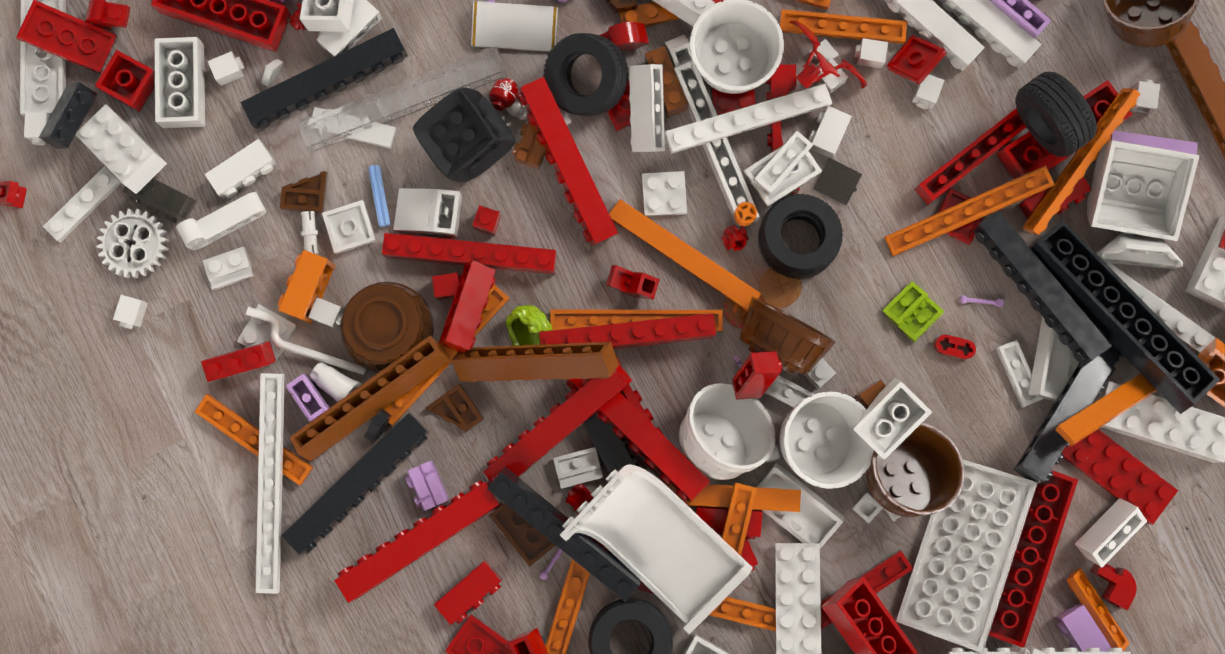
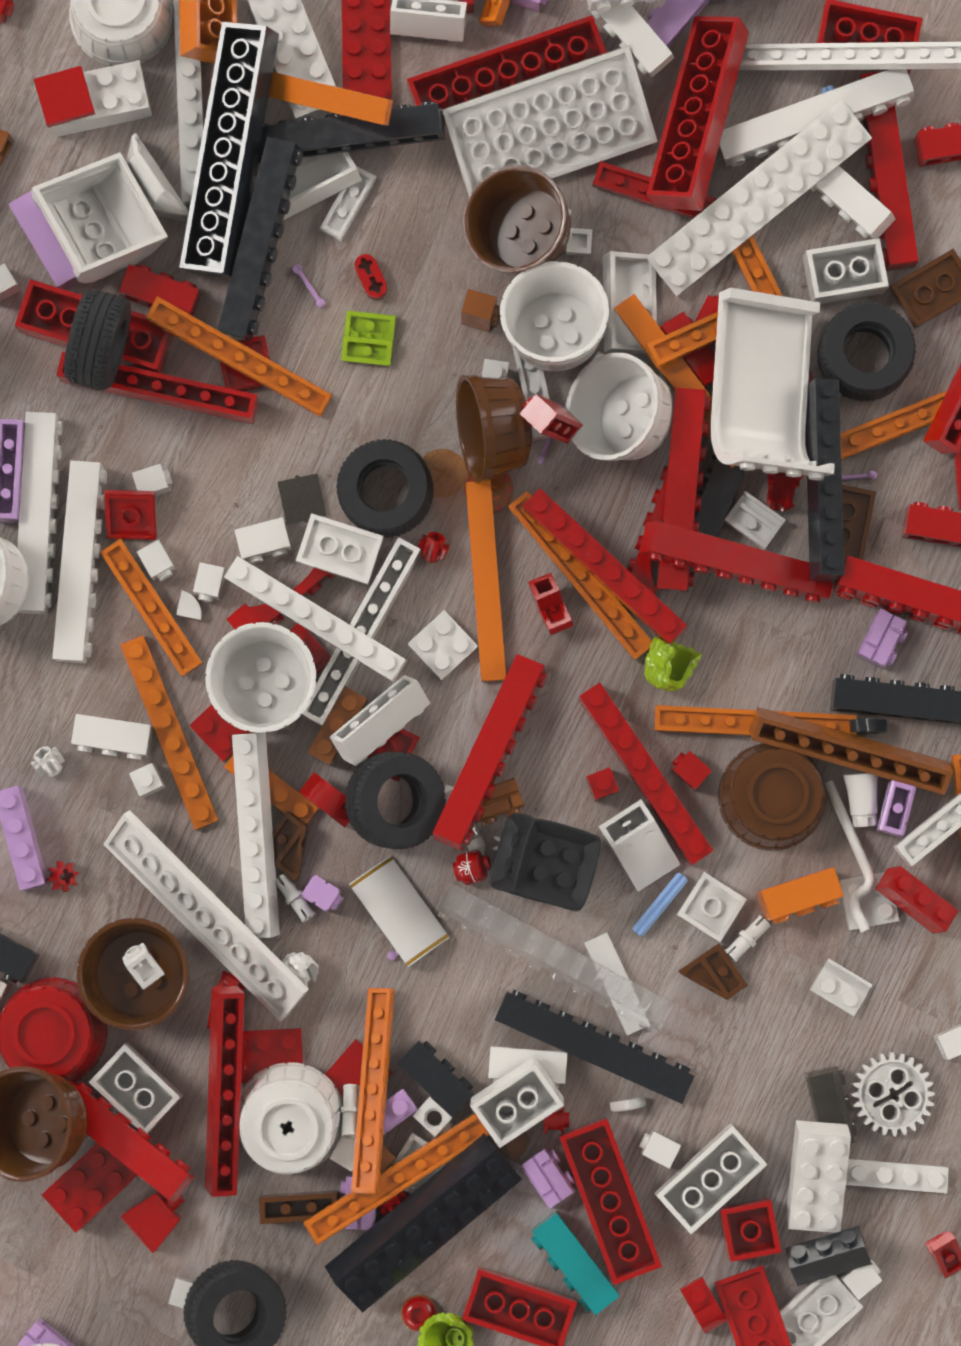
camera: 130 degrees left, 0 degrees up
(221, 222) = (803, 1027): white beam -> none
(241, 169) = (742, 1051): white brick -> none
(326, 313) = (806, 857): white brick -> none
(457, 408) = (791, 670): reddish brown wing -> none
(467, 307) = (697, 731): red brick -> none
(536, 362) = (700, 623): dark orange brick -> none
(679, 50) = (299, 736): white brick -> none
(747, 210) = (407, 544): orange wheel -> none
(783, 162) = (333, 552): white plate -> none
(811, 73) = (217, 592): red plant -> none
(891, 418) = (491, 274): white slope -> none
(1080, 161) = (131, 288): orange plate -> none

